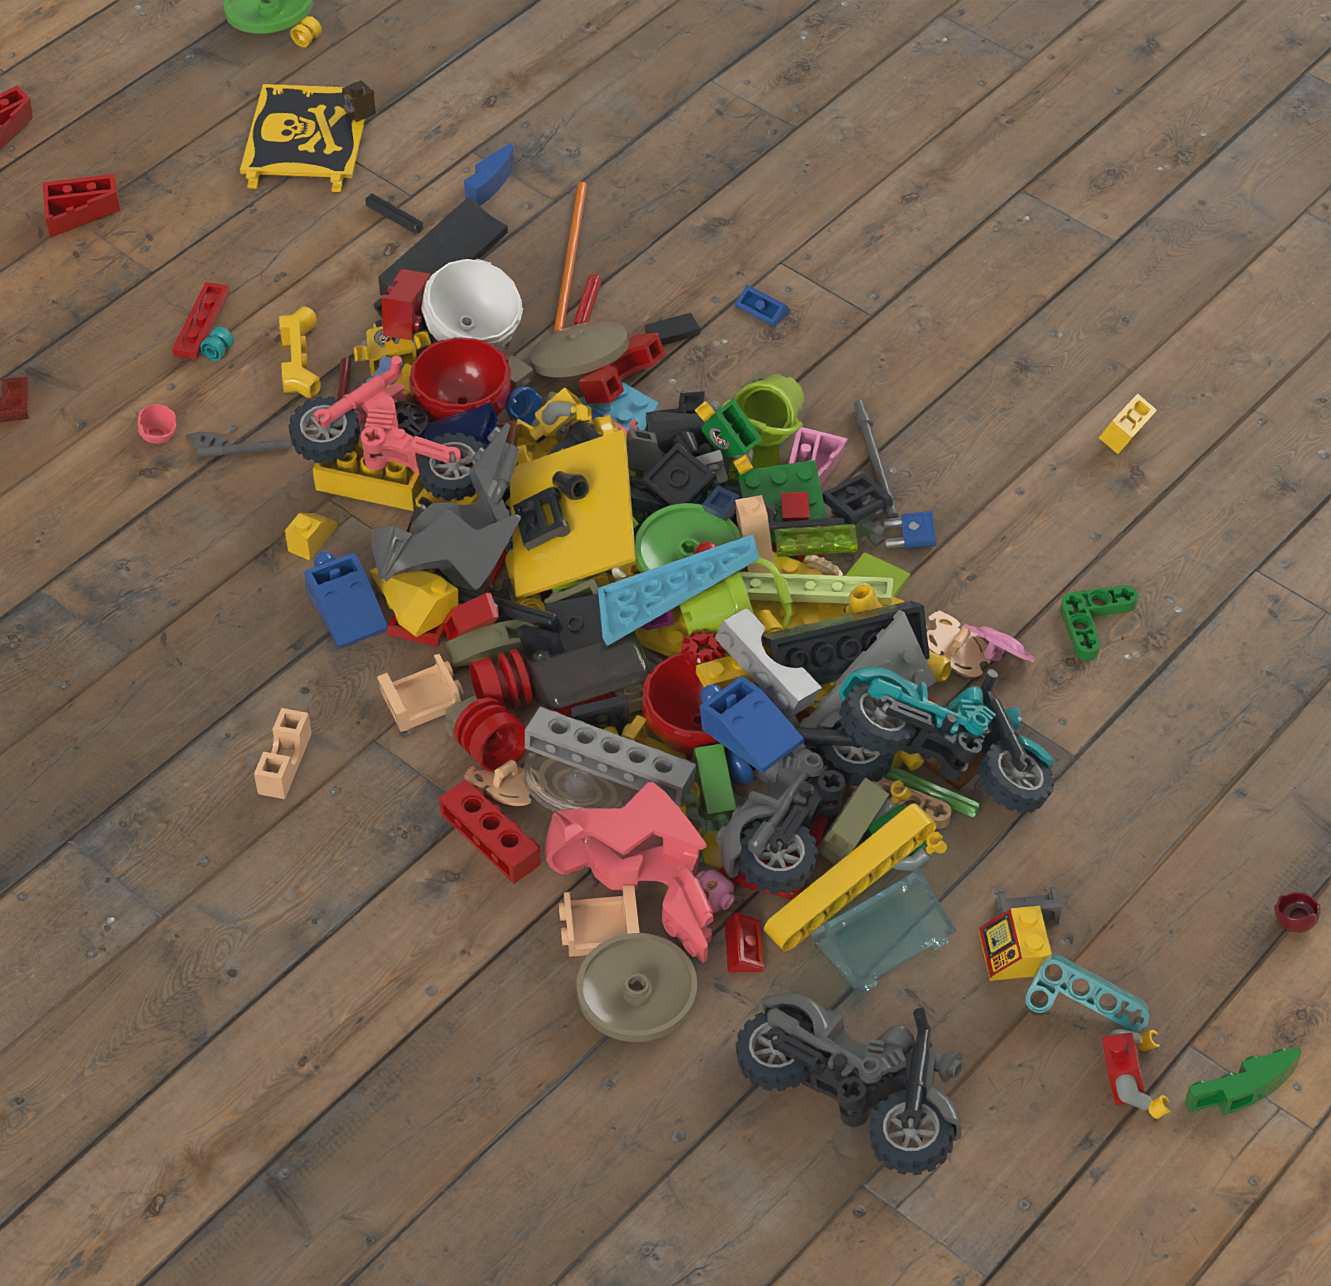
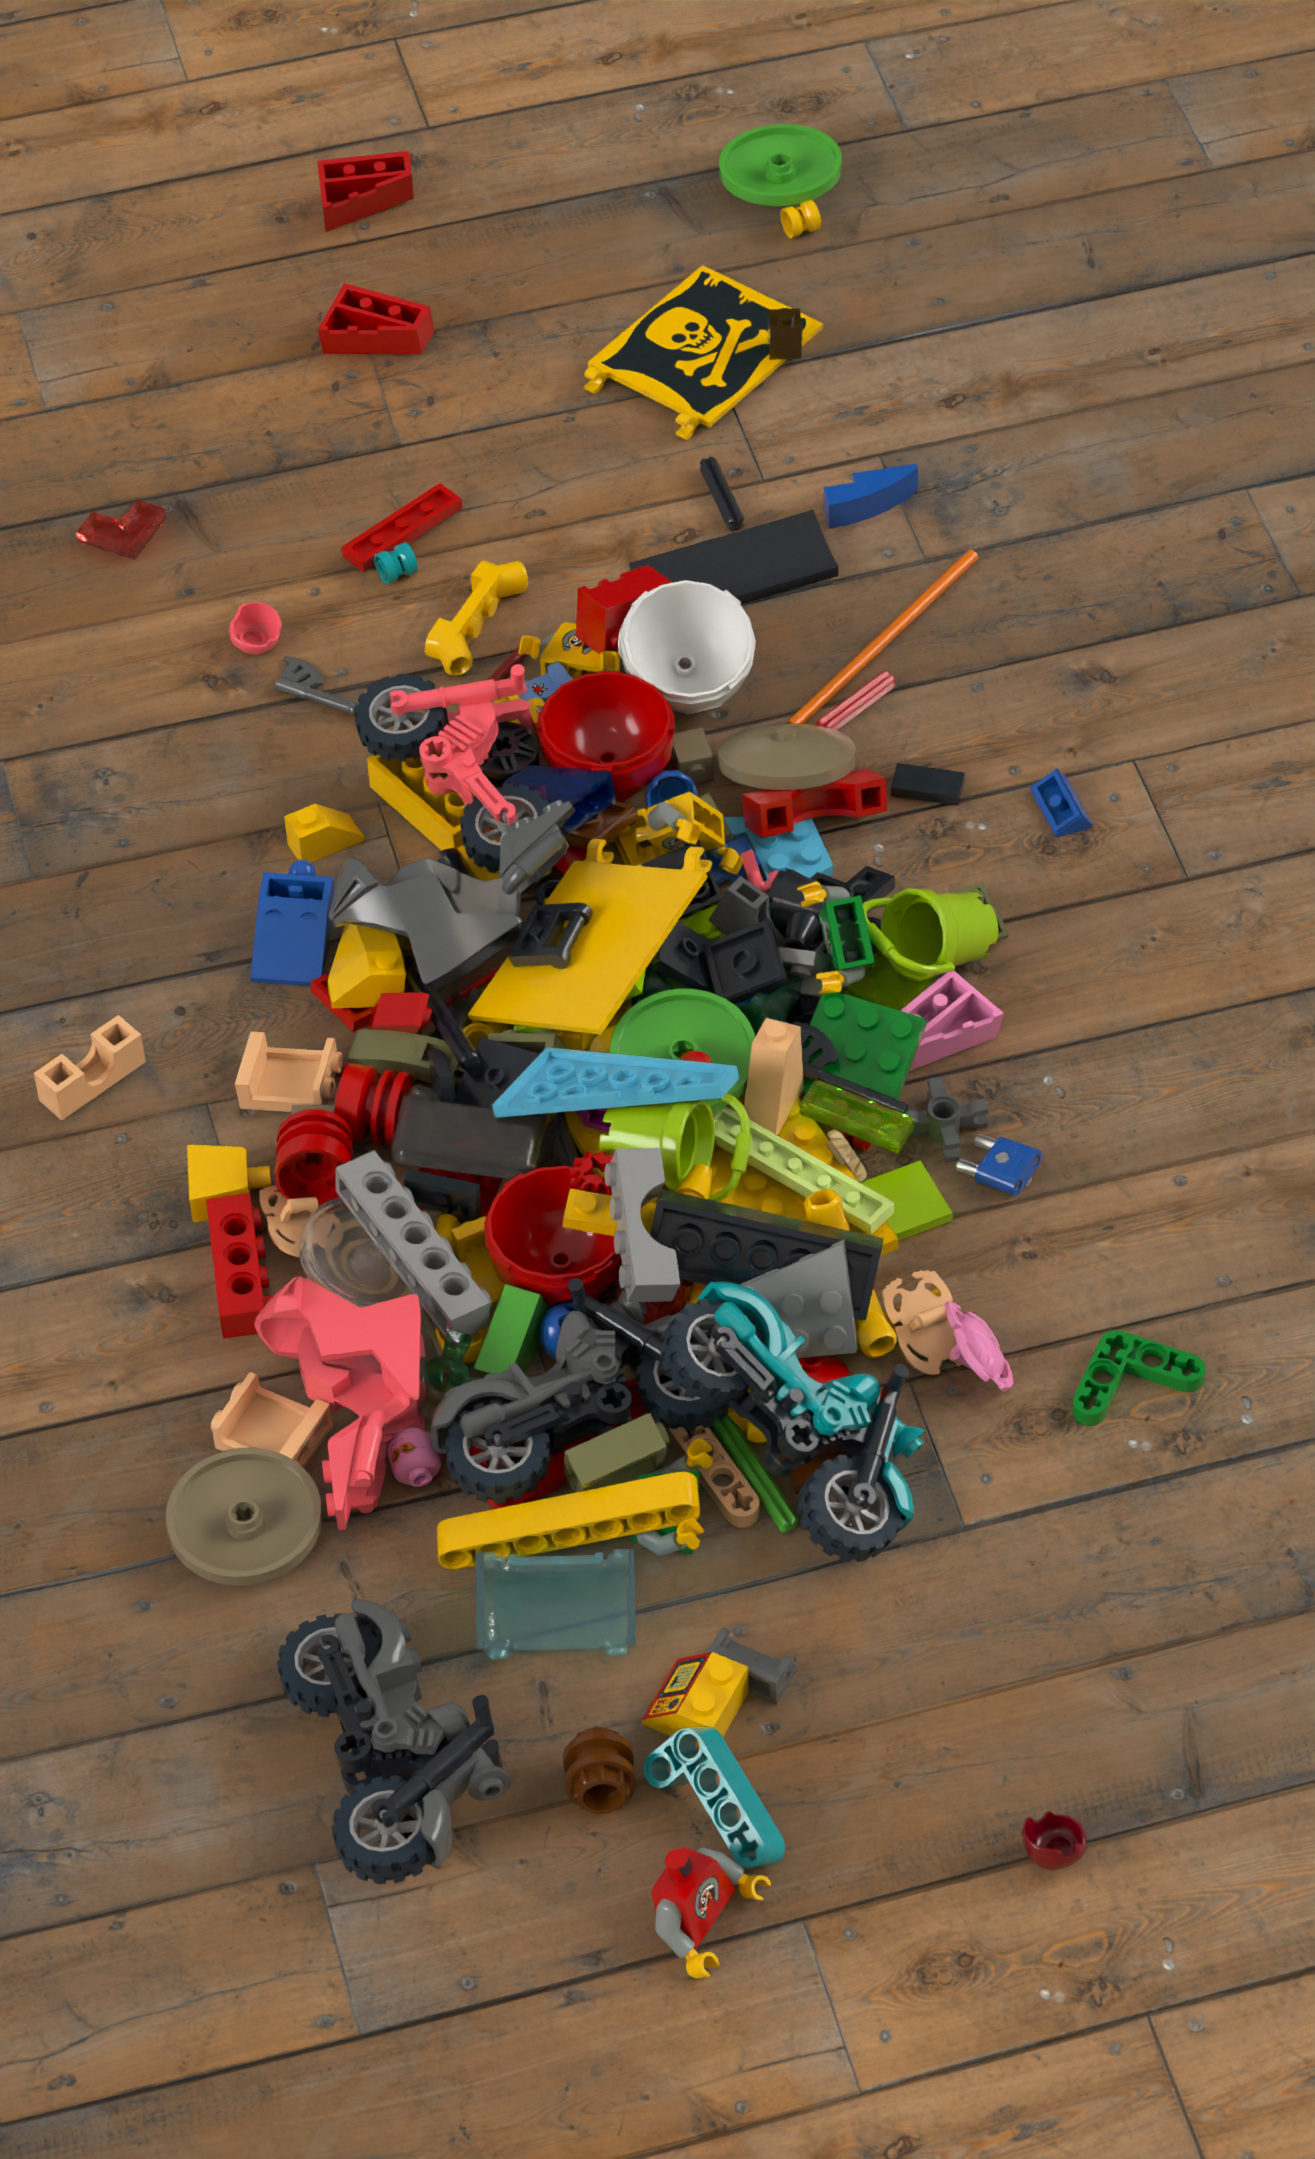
camera: 35 degrees right, 0 degrees up
(429, 779) = (220, 1173): none -> yellow torso
(572, 485) = (603, 911): black cone -> none
(721, 503) = (751, 1013): dark blue tile -> none
(744, 944) = (407, 1536): red slope -> none
(748, 723) = (565, 1283): blue slope -> none
(794, 506) = (859, 1062): red tile -> none
(853, 493) = (948, 1082): black plate -> none
(865, 423) = (1057, 1008): dark grey bar -> none
(1000, 1021) = (599, 1770): none -> reddish brown piece
(1254, 1082) = (835, 2000): green slope -> none

